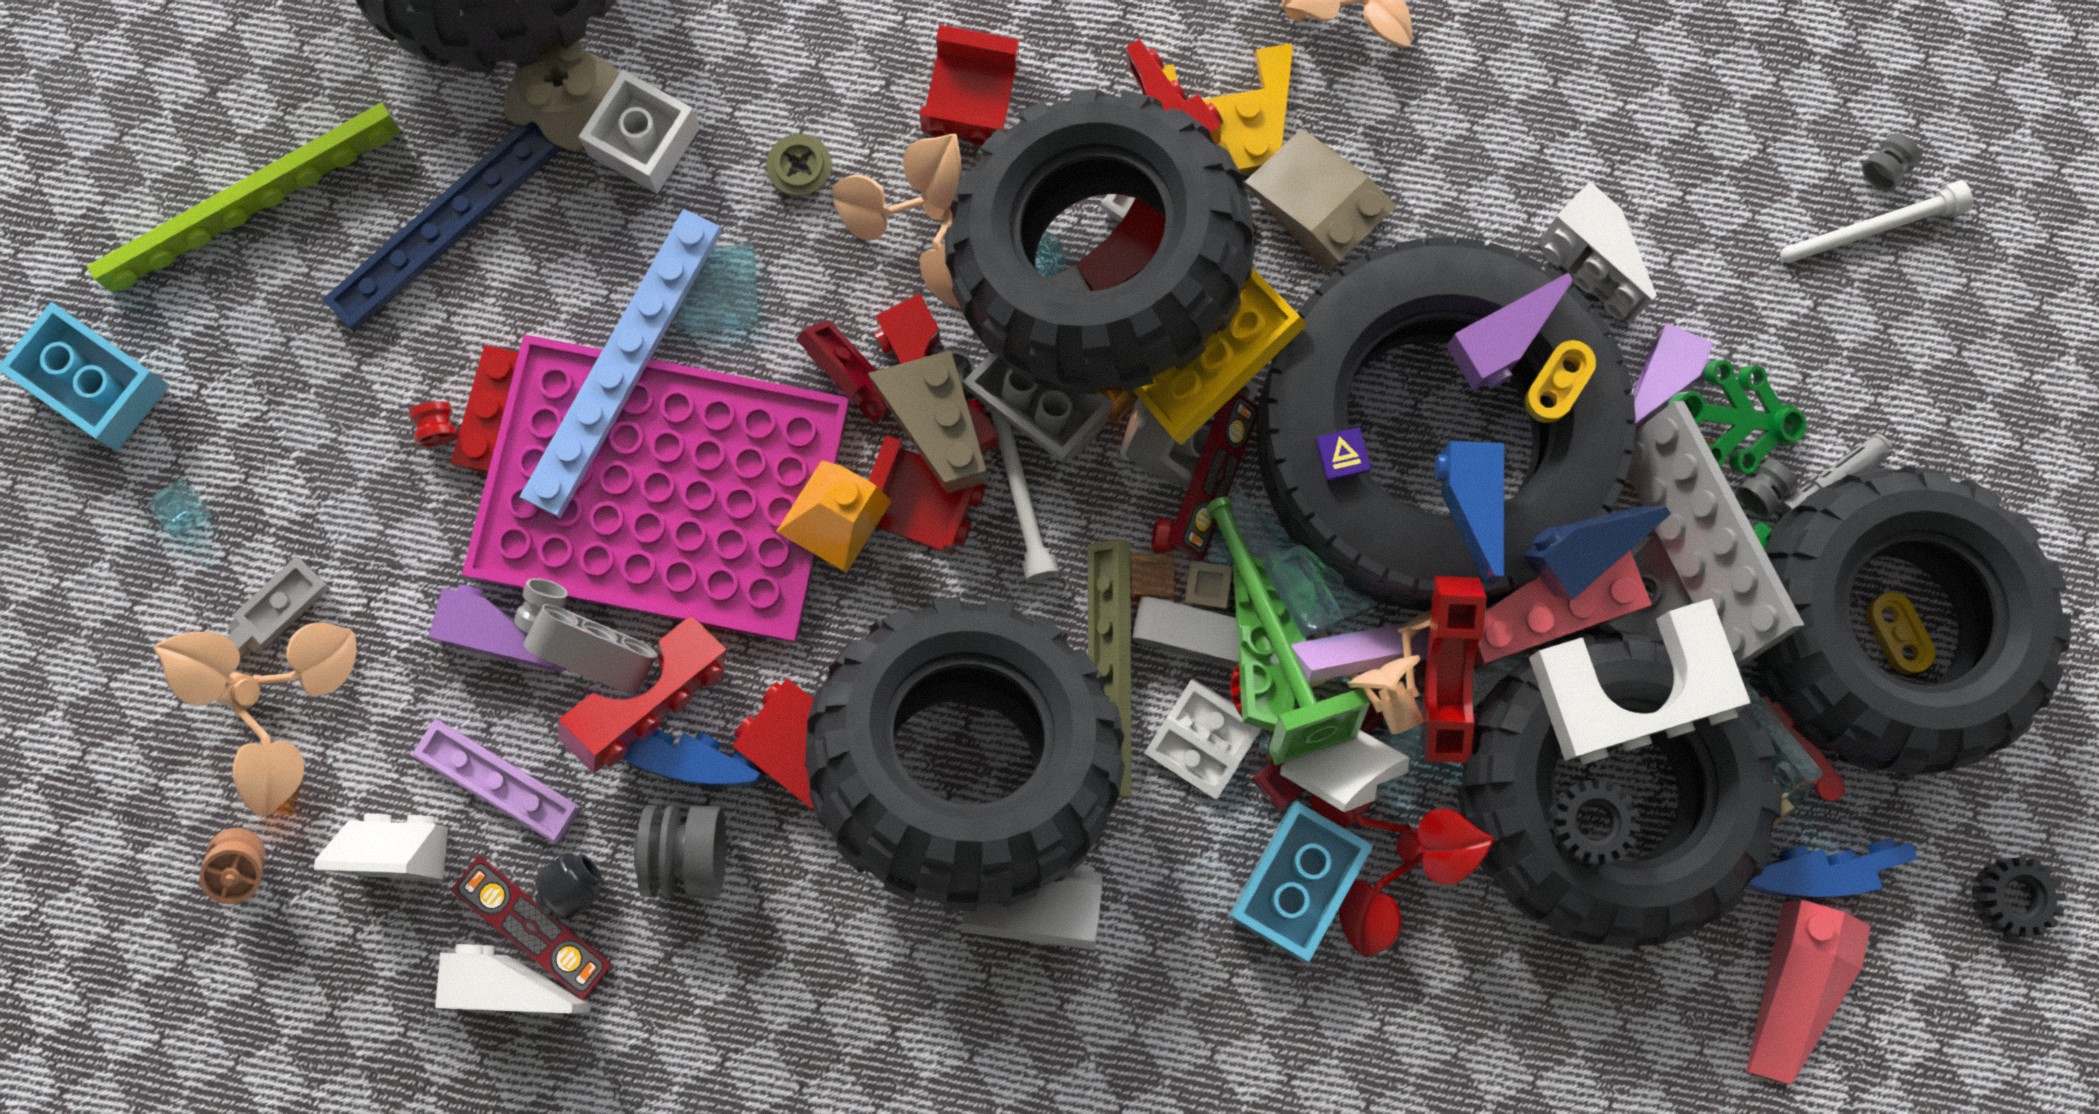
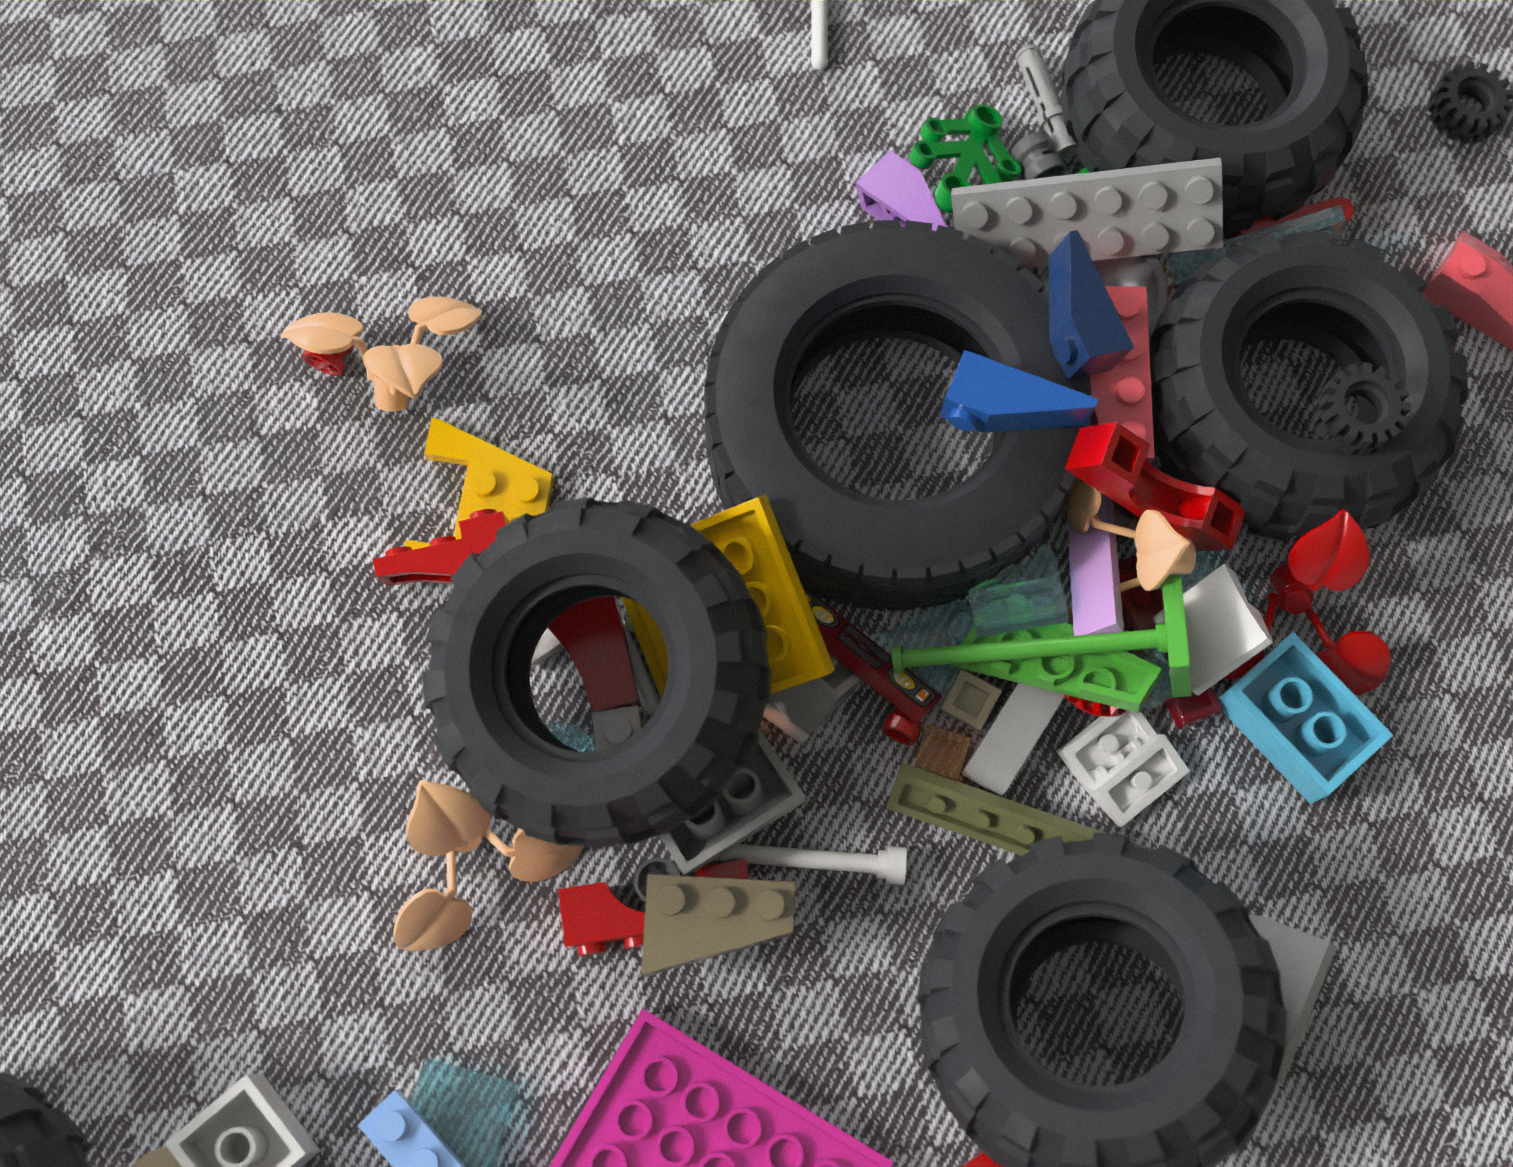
camera: 70 degrees left, 5 degrees down
(799, 148) = (333, 968): olive gear -> none
(835, 514) = (774, 1070): light orange slope -> none
(845, 367) = (604, 1000): dark red hinge -> none
(919, 502) = (781, 977): red panel -> none
(970, 84) = (342, 757): red panel -> none
(1319, 198) = (610, 446): slope -> none
(1342, 454) = (914, 509): dark purple tile -> none
(1497, 342) = (850, 310): medium lavender slope -> none
(1558, 383) = (914, 281): yellow plate -> none
(1600, 253) = (766, 213): white slope -> none
(1703, 687) = (1261, 266): white arch -> none
(1822, 876) = (1416, 225): blue slope -> none
(1903, 631) = (1204, 100): yellow plate -> none

